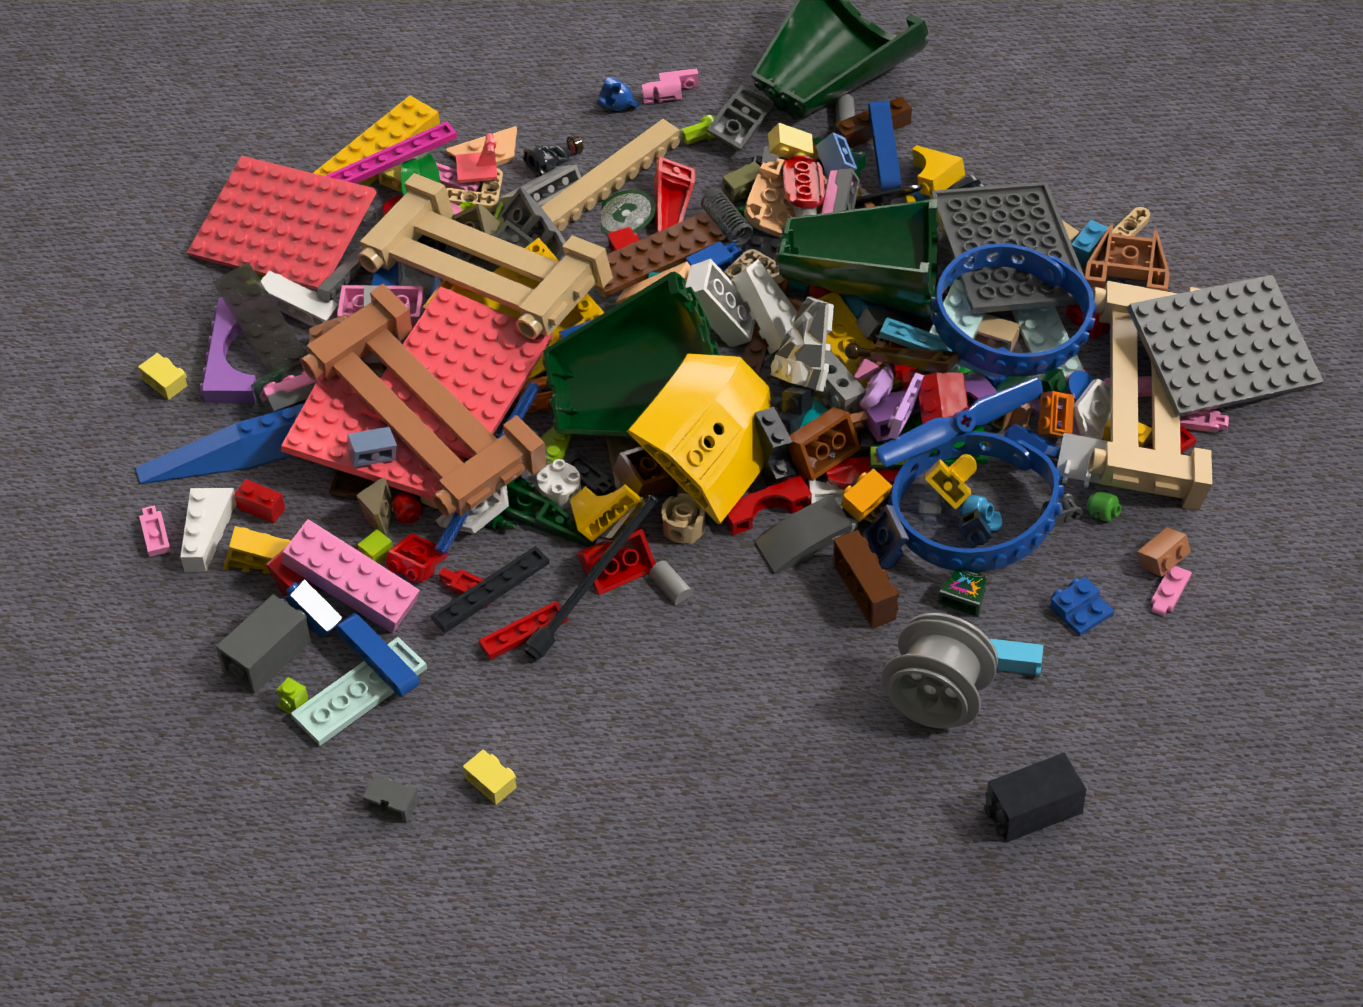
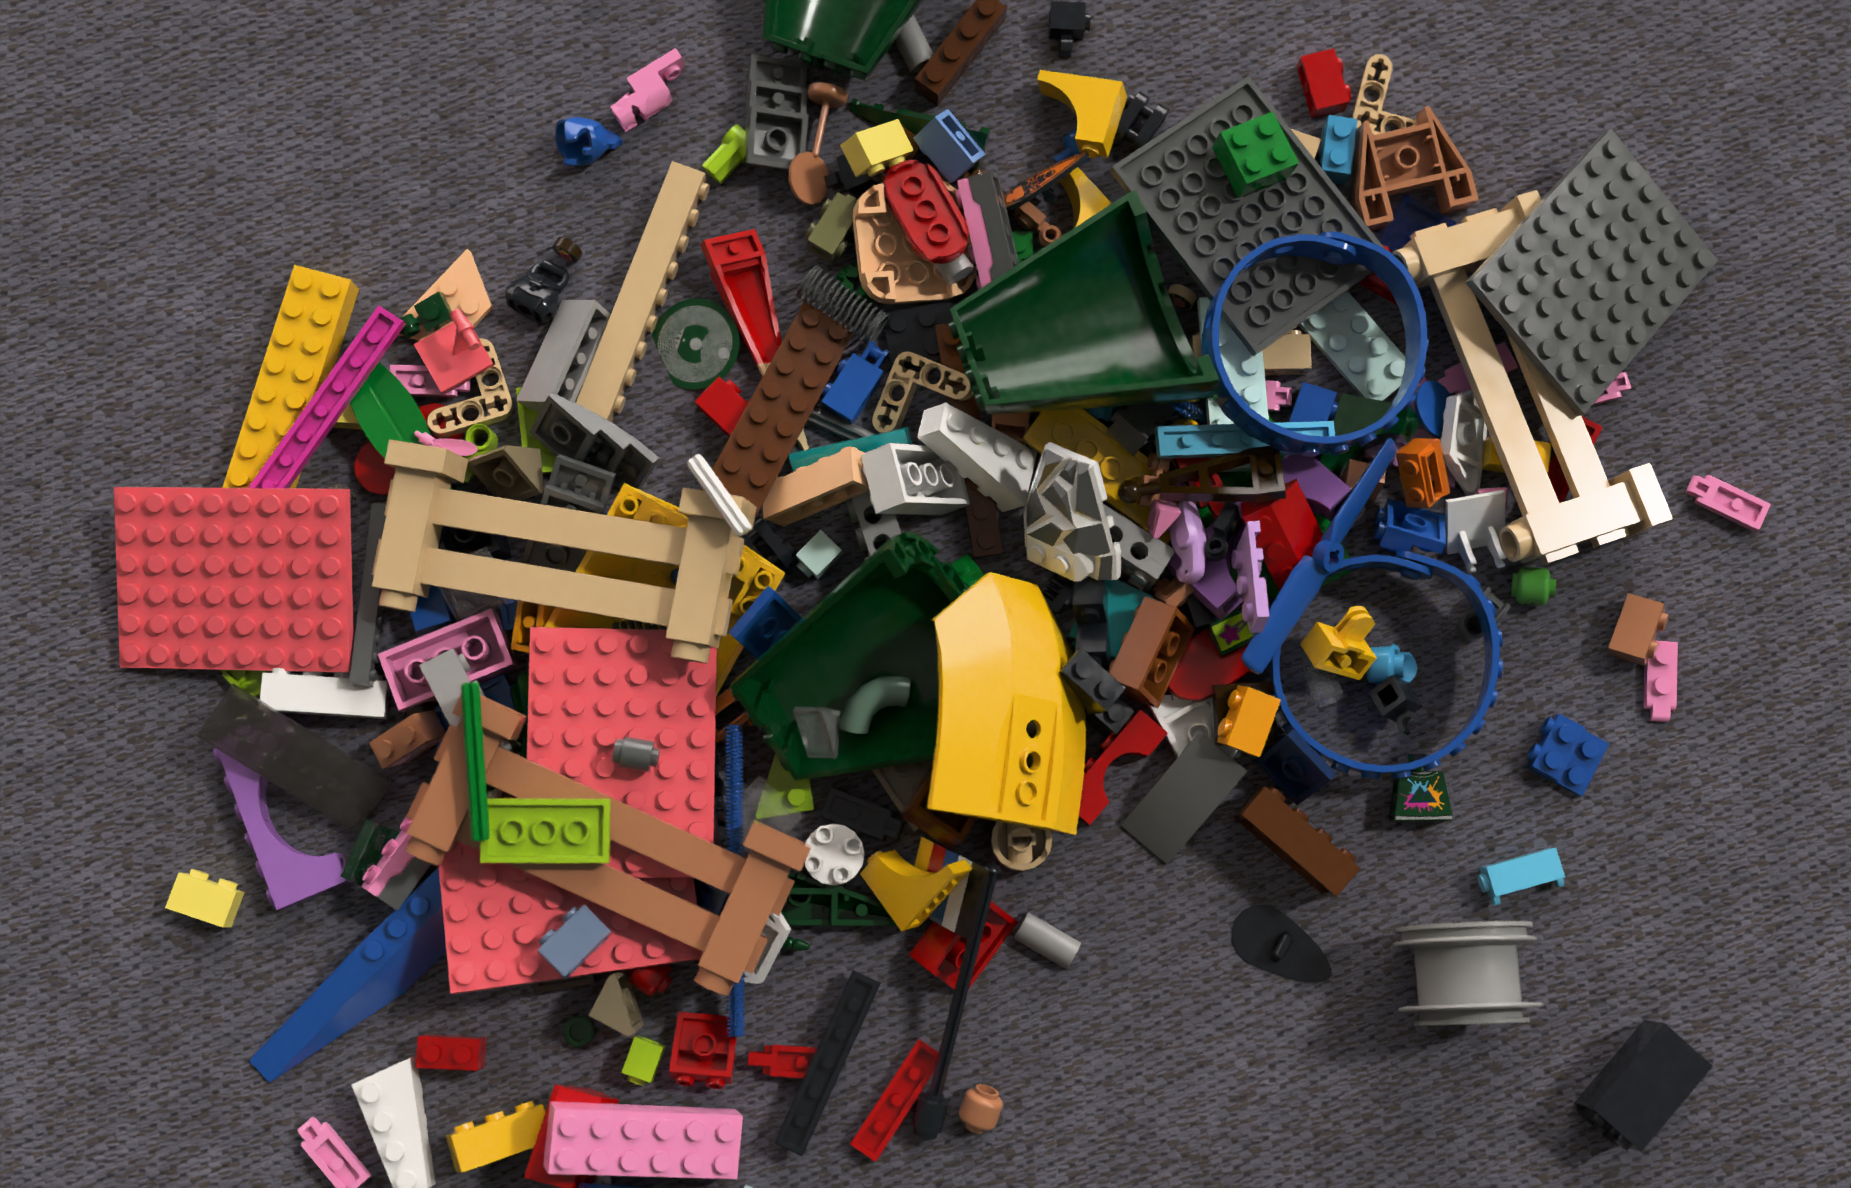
camera: 30 degrees left, 30 degrees up
(344, 524) = (579, 1031): none -> dark green tile
(368, 319) = (475, 761): none -> green axle
(389, 376) = (547, 831): none -> lime plate
(465, 366) = (635, 754): none -> dark grey brick
(474, 144) = (431, 312): none -> dark green plate
(574, 653) = (980, 1108): none -> nougat head
(587, 404) = (819, 730): none -> clear slope
(590, 240) = (719, 495): none -> white axle
(624, 403) = (870, 699): none -> sand green cylinder
(742, 149) = (807, 168): none -> nougat piece
(825, 643) = (1278, 945): none -> black shield
(884, 145) = (999, 90): blue beam -> none
(894, 393) = (1226, 525): none -> black plate
(948, 132) = (1068, 23): none -> black brick
(1025, 211) = (1255, 154): none -> green brick
(1099, 207) = (1323, 83): none -> red brick
(1266, 509) = (1728, 501): none -> bright pink hinge

